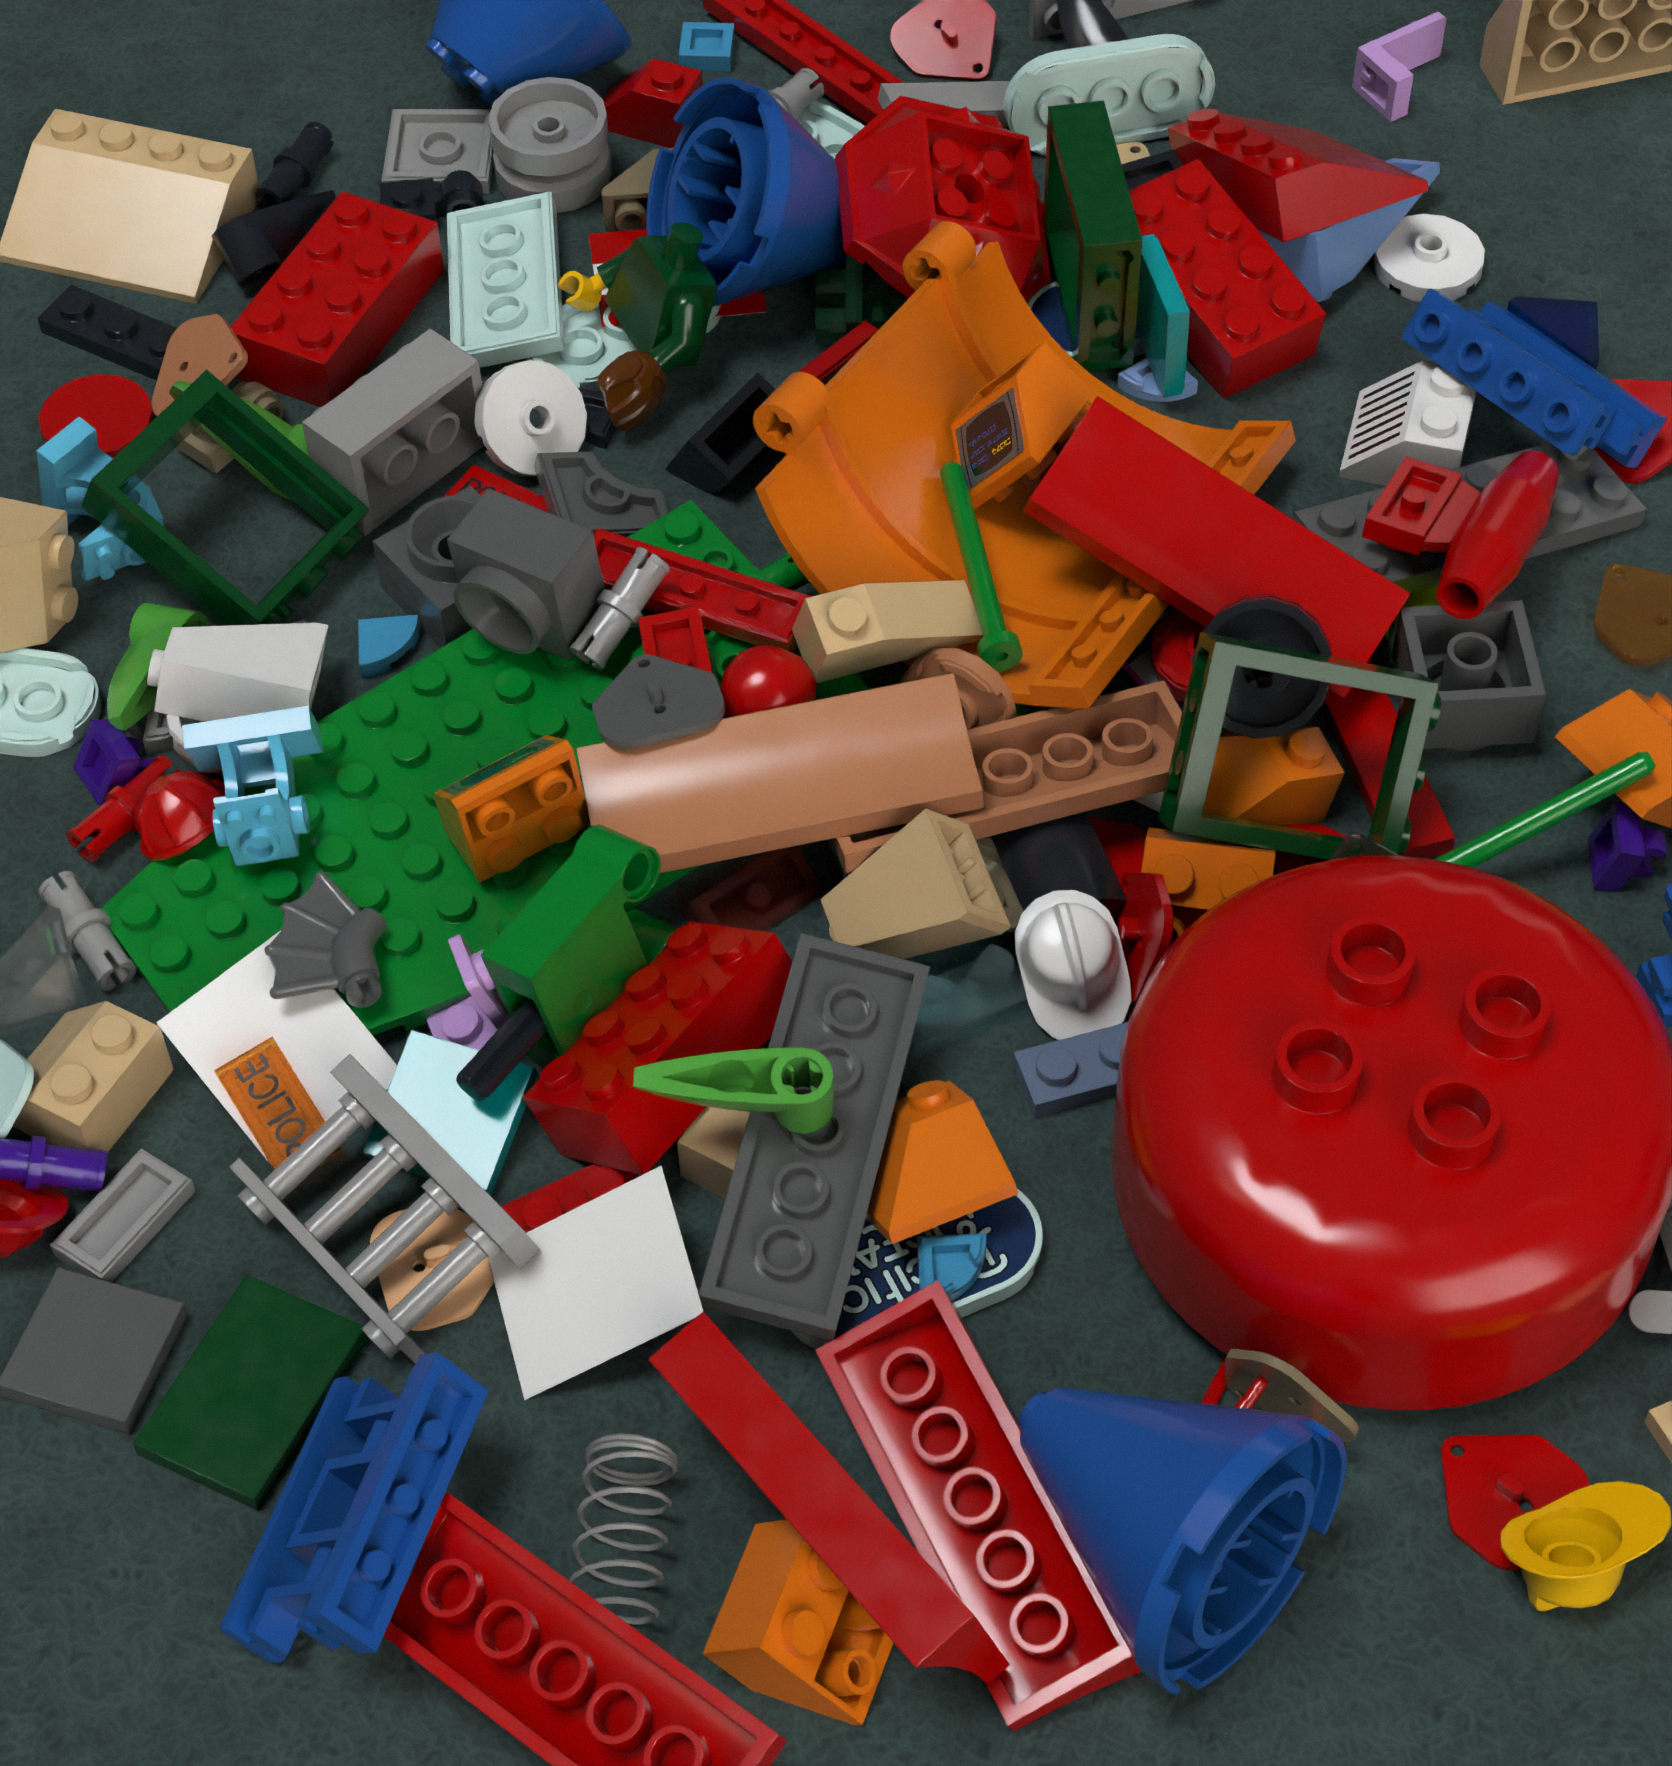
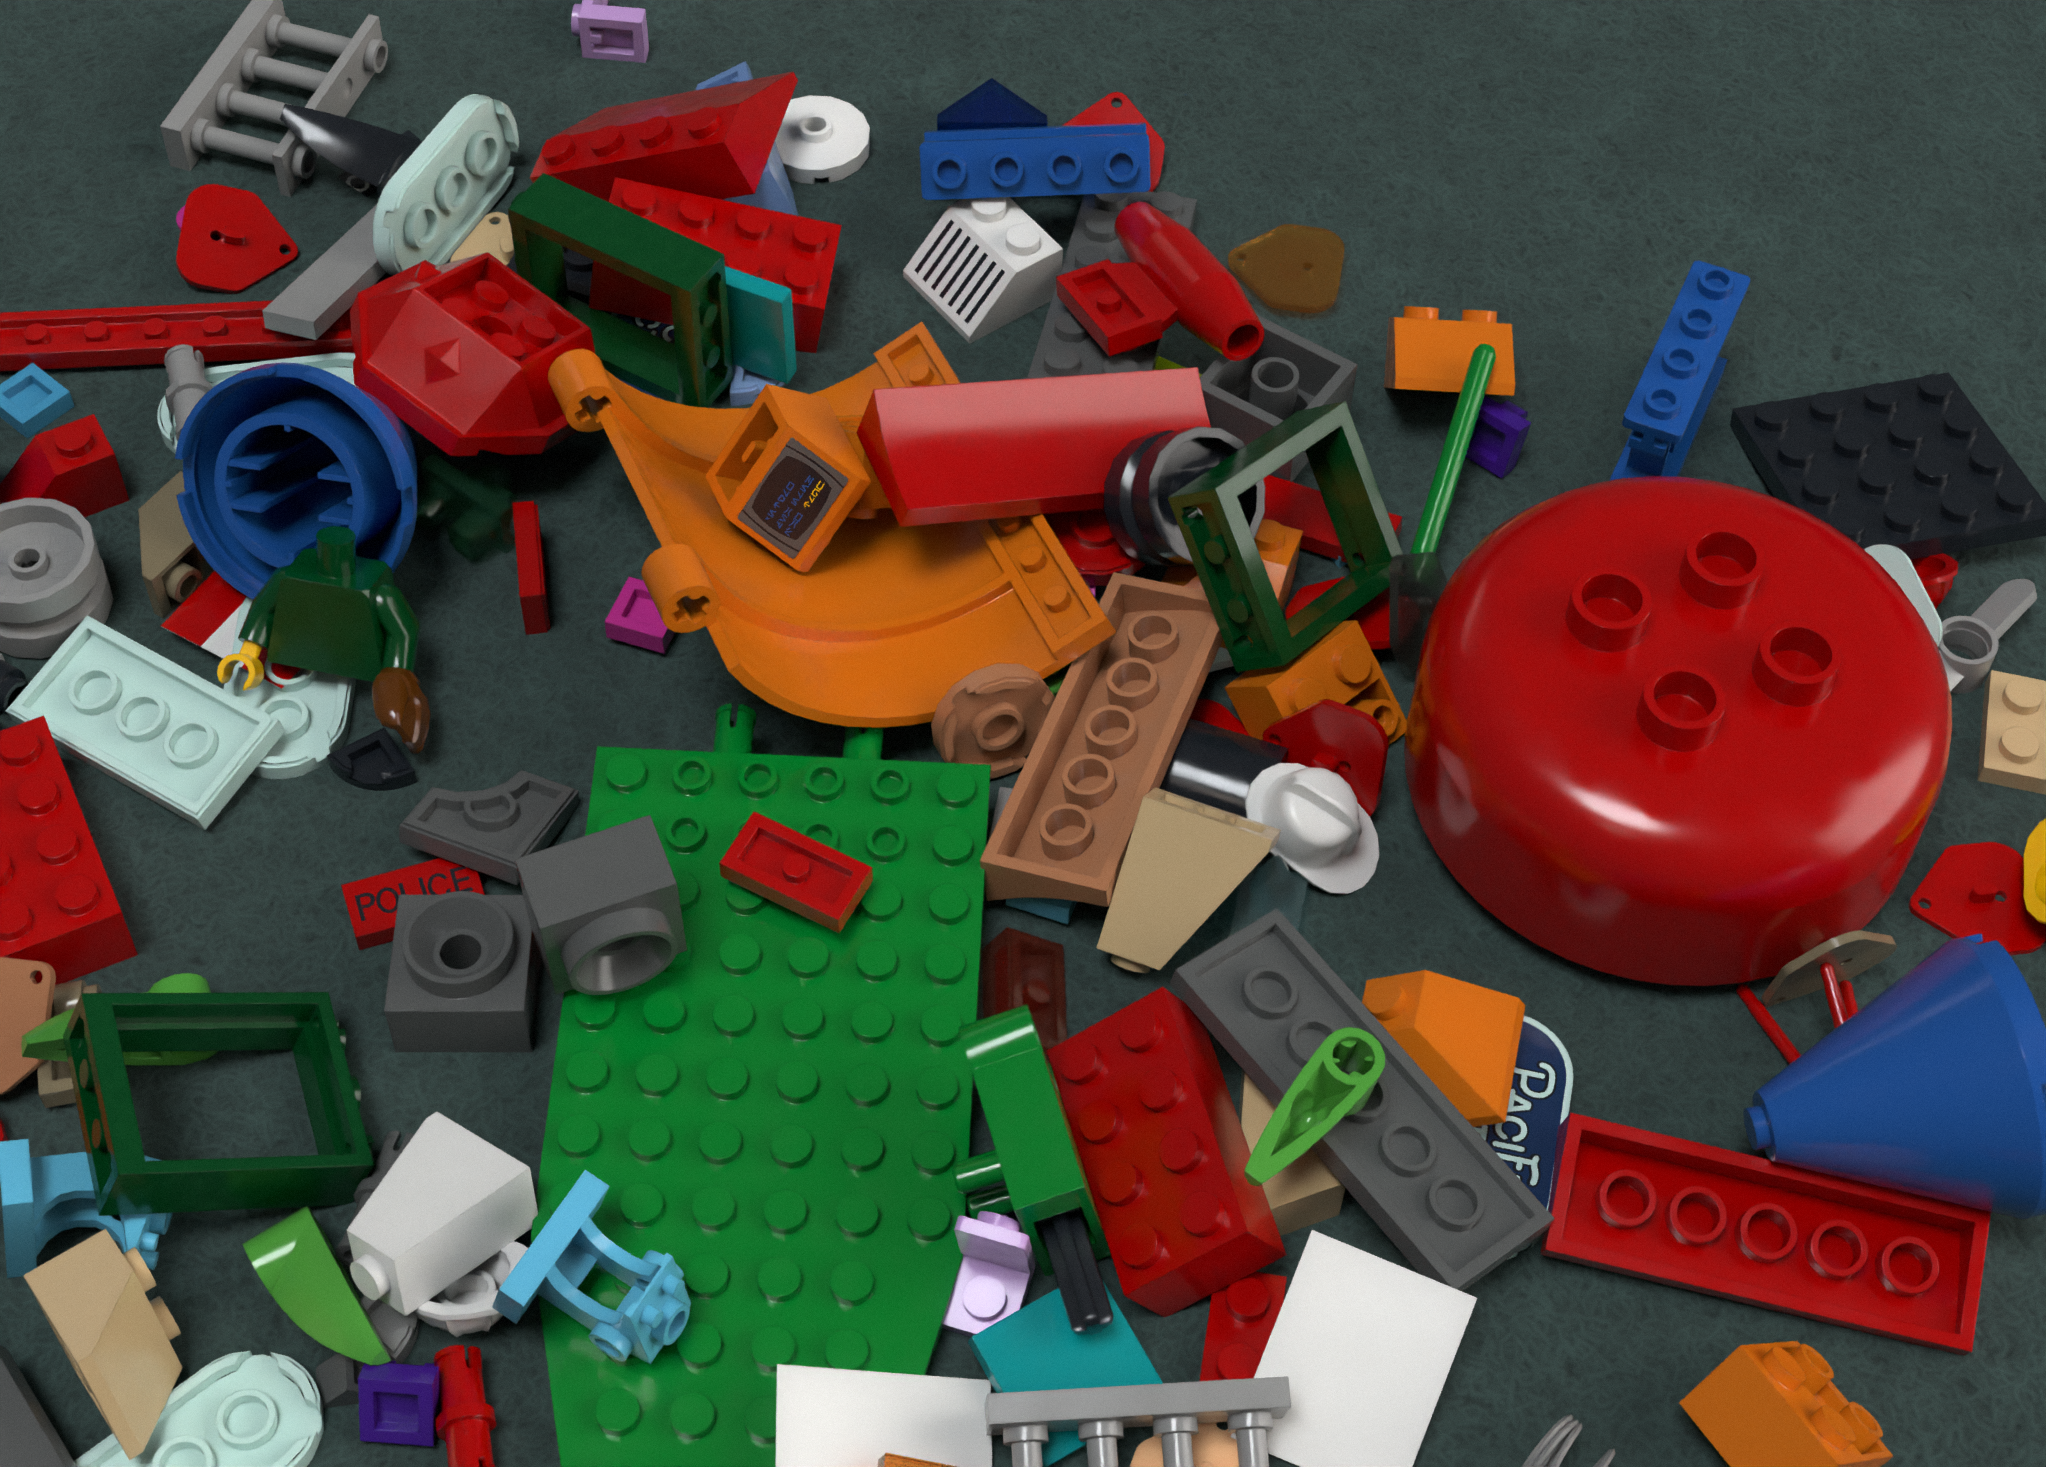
camera: 55 degrees left, 0 degrees up
(176, 813) = (538, 1376): red piece -> none
(327, 946) = (827, 1341): dark grey arm -> none
(385, 641) = (472, 1089): dark azure tile -> none
(399, 426) = (257, 894): light grey brick -> none
(505, 408) = (350, 803): white plate -> none
(515, 807) = (832, 1086): orange slope -> none
(619, 608) = (693, 869): light grey pin -> none
(632, 704) = (821, 903): dark grey piece -> none
(724, 441) = (520, 682): black brick -> none
(726, 599) = (720, 803): red tile -> none
(766, 680) = (885, 827): red hair -> none
(789, 775) = (989, 885): nougat arch -> none
(825, 1504) = (1733, 1321): red arch -> none
(883, 625) = (903, 708): tan slope -> none
(951, 1260) = (1533, 1107): dark azure tile -> none
(998, 646) = (993, 645): green bar -> none
(1070, 1070) = (1399, 893): sand blue plate -> none

